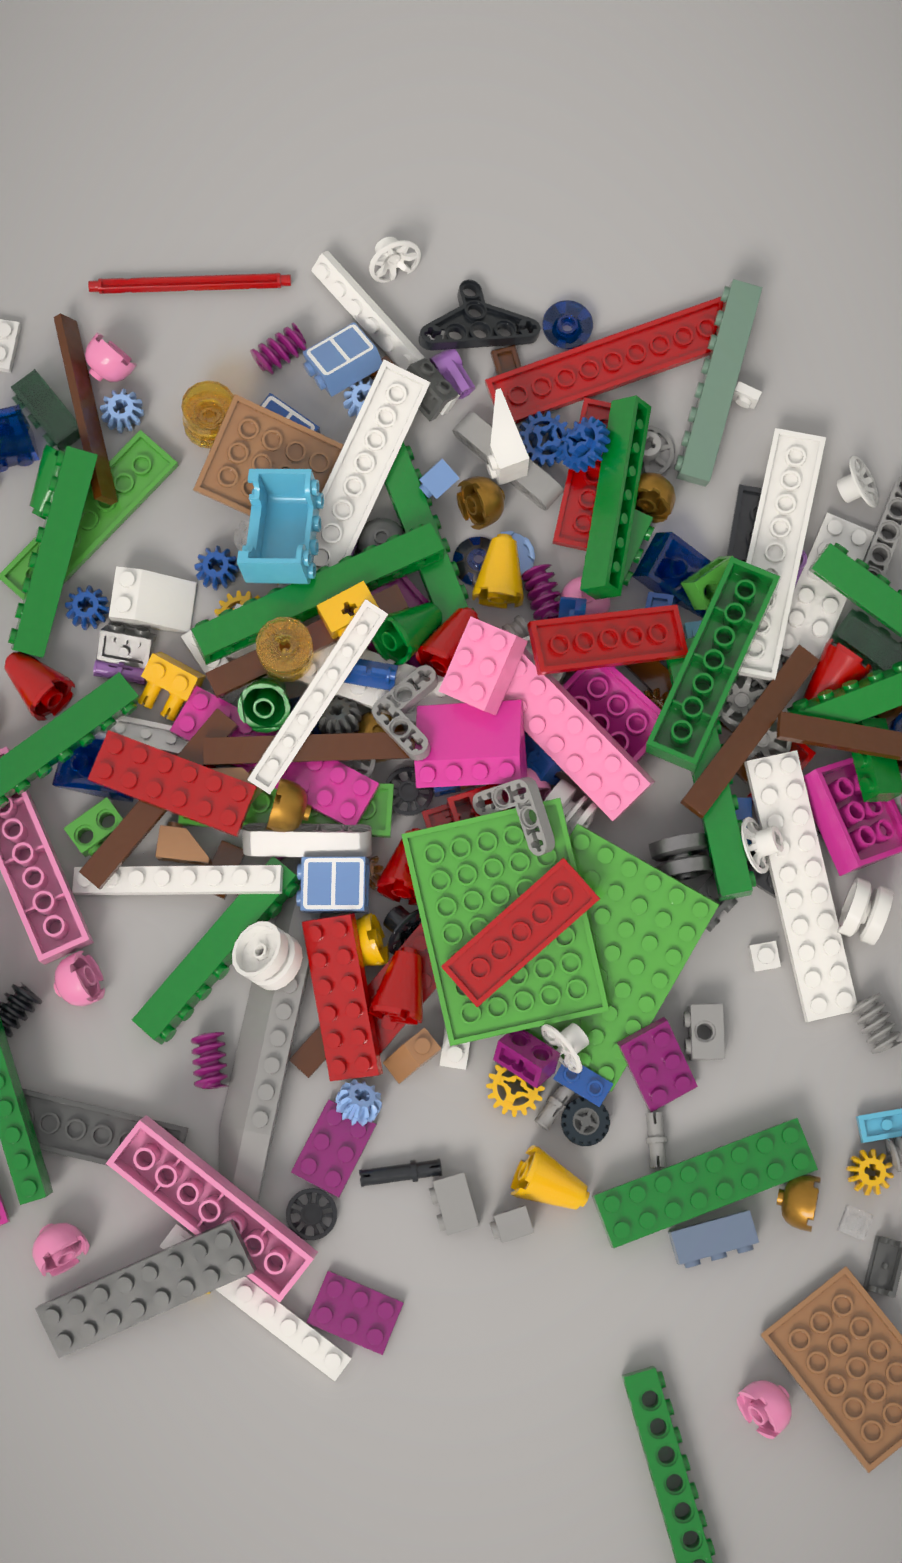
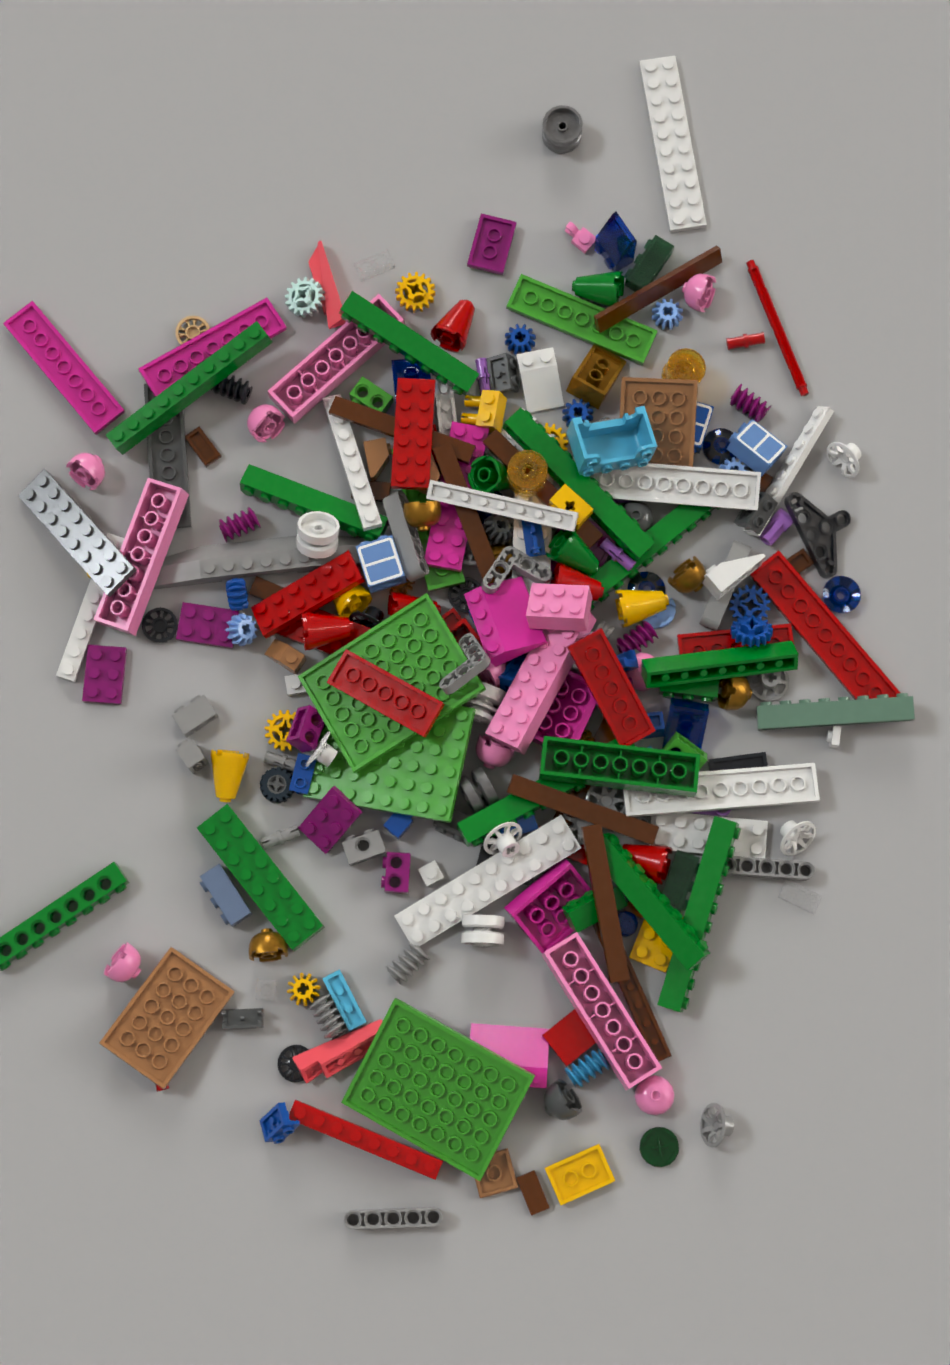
camera: 75 degrees right, 0 degrees up
(53, 551) = (547, 302): green brick -> none
(80, 1077) = (202, 446): none -> reddish brown tile
(173, 527) = (596, 376): none -> pearl gold slope
(193, 327) = (745, 340): none -> red pin
(307, 1093) = (237, 594): none -> blue gear
(323, 416) = (712, 449): none -> dish
(402, 1172) = (207, 680): black pin -> none
(426, 576) = (617, 554): none -> medium lavender pin
(438, 479) = (692, 540): medium blue slope -> none
(634, 824) = (493, 753): none -> bright pink cylinder
(690, 978) = (398, 824): none -> blue brick
(754, 993) = (402, 872): none -> magenta brick

